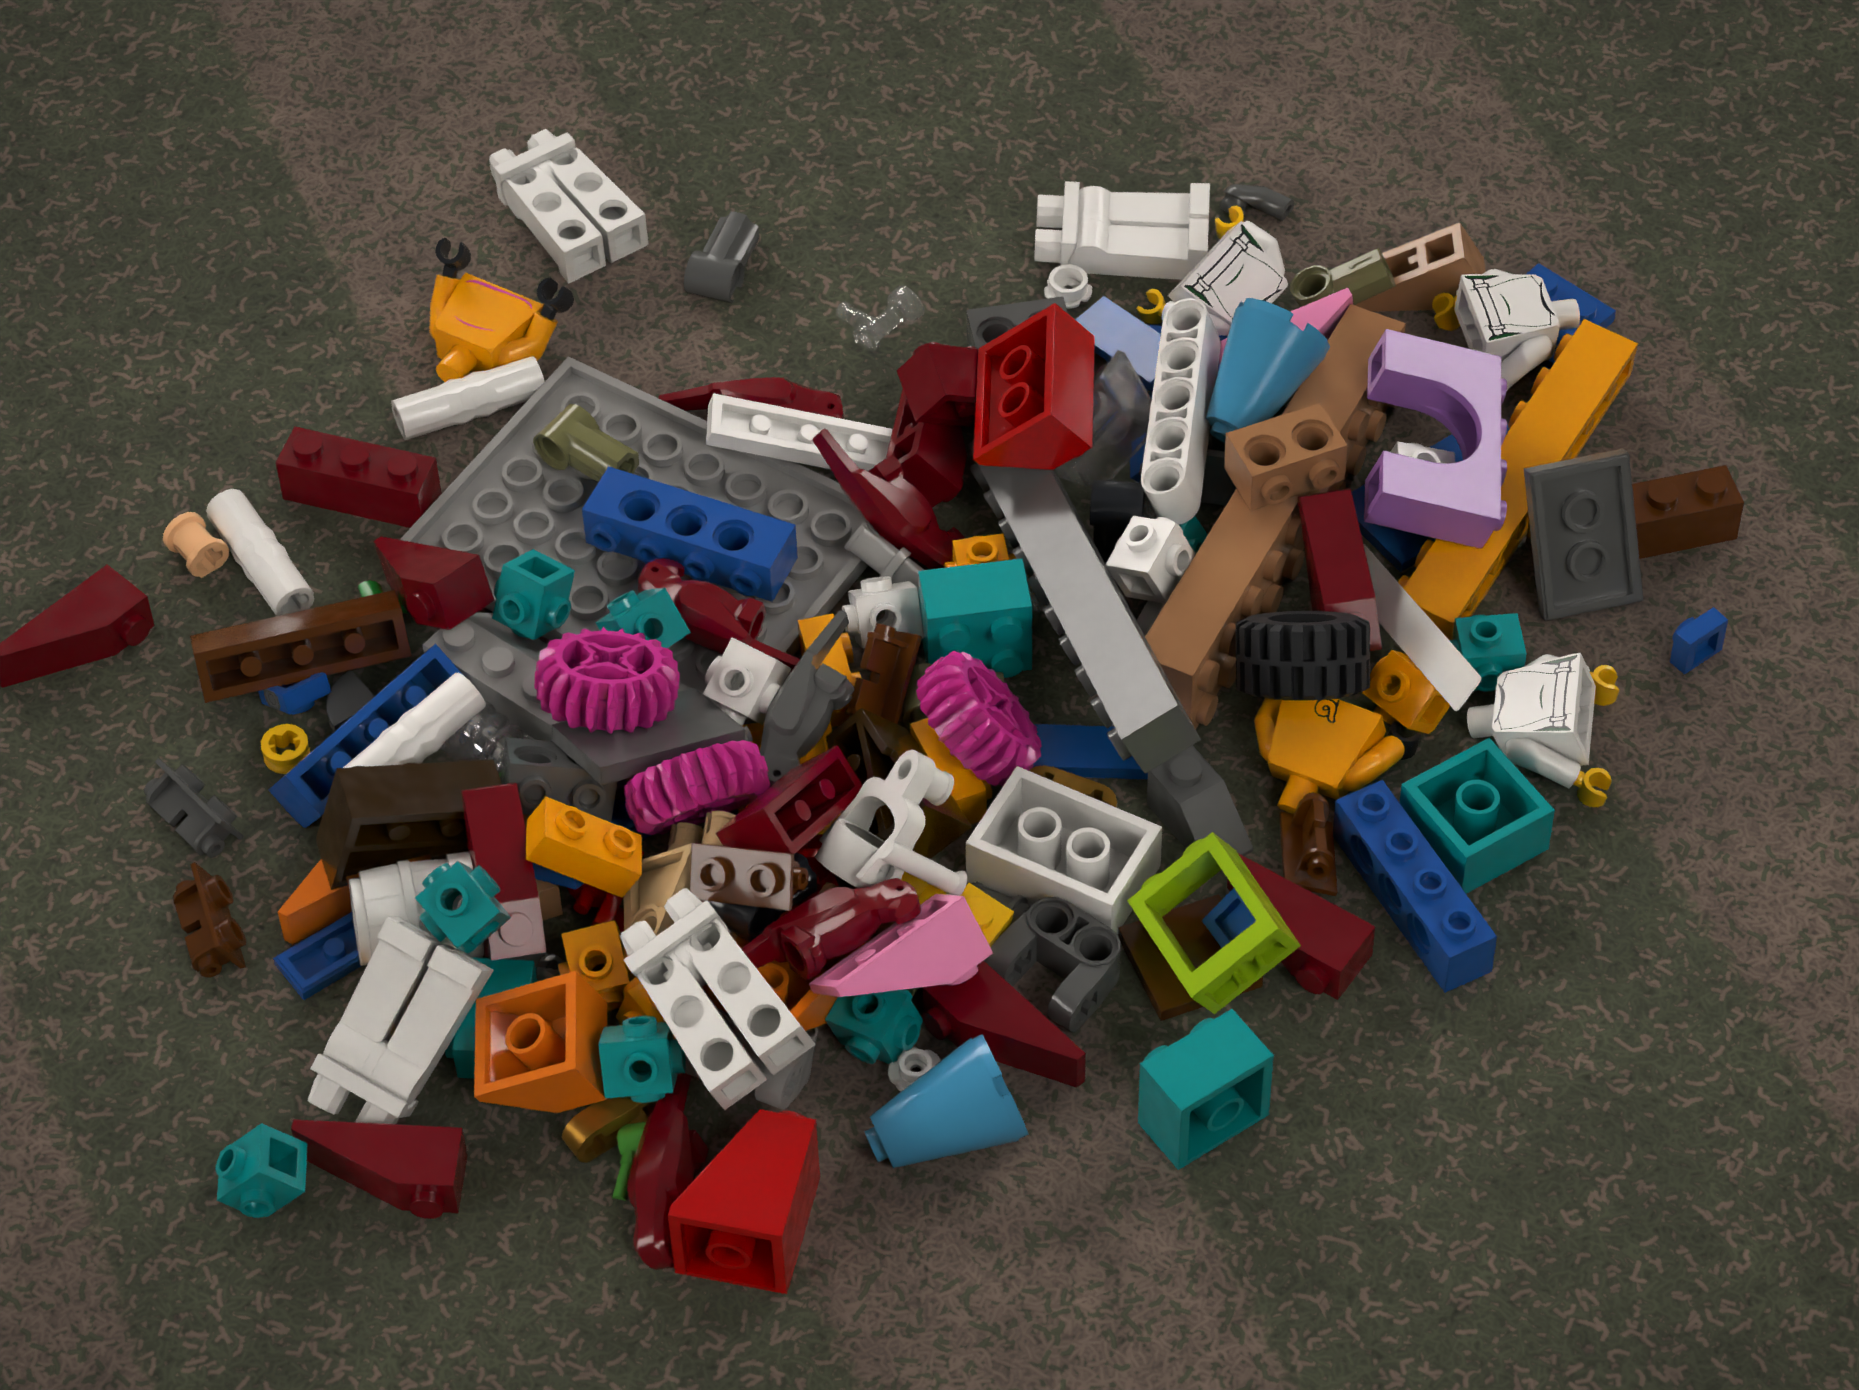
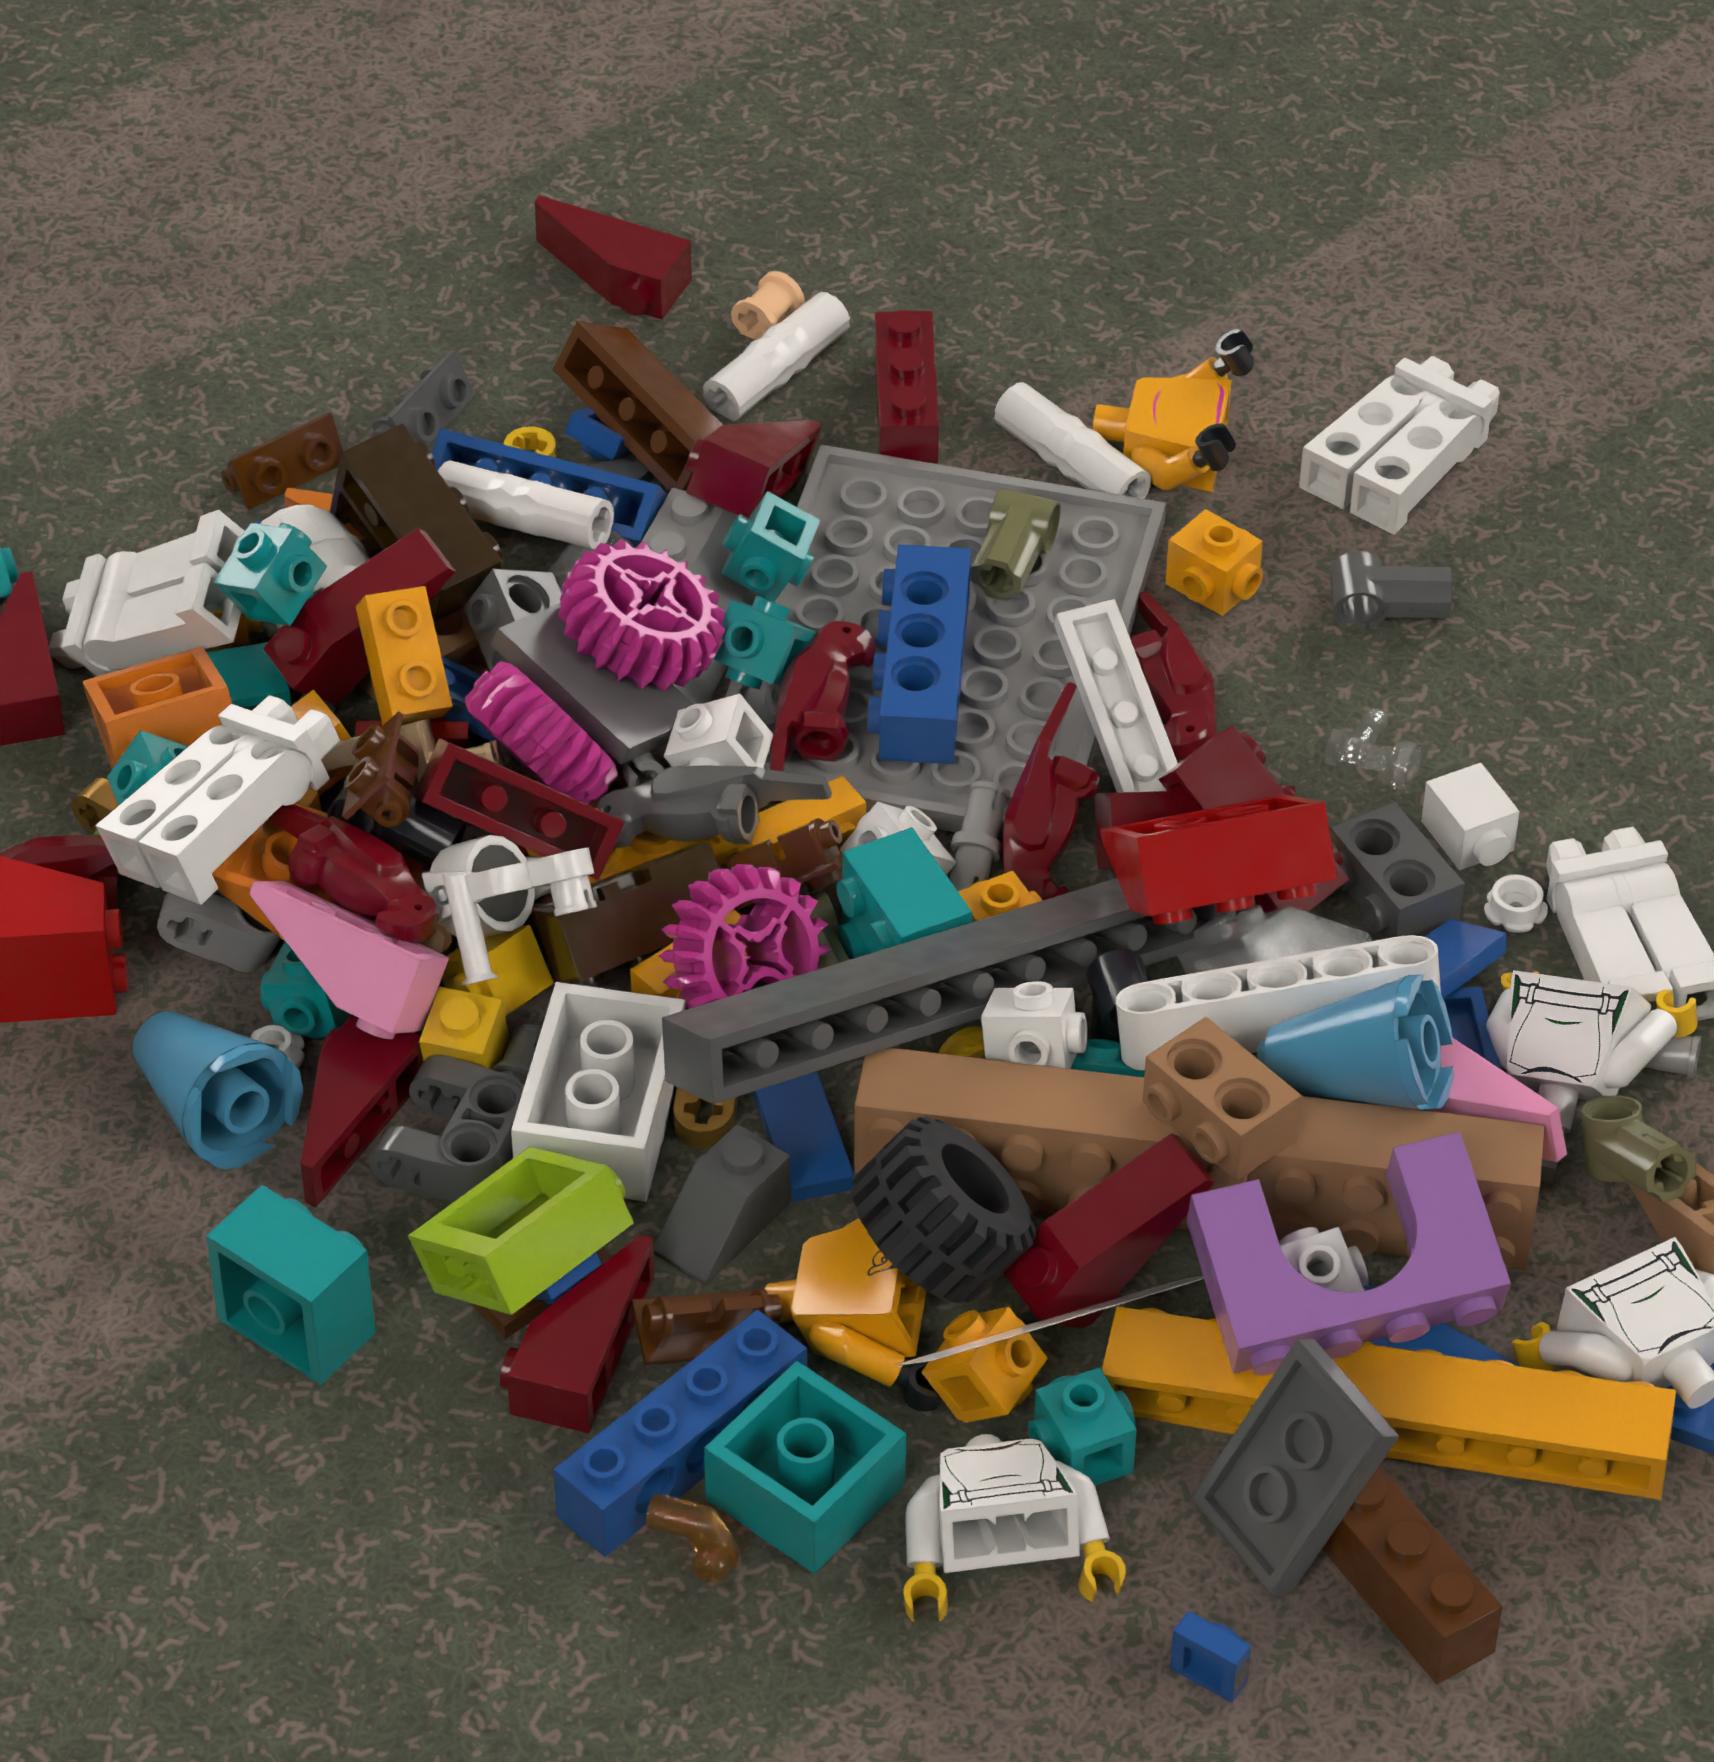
camera: 70 degrees right, 5 degrees down
(654, 344) = (1214, 562): none -> light orange brick
(981, 279) = (1470, 817): none -> white brick
(1505, 898) = (703, 1528): none -> clear orange arm

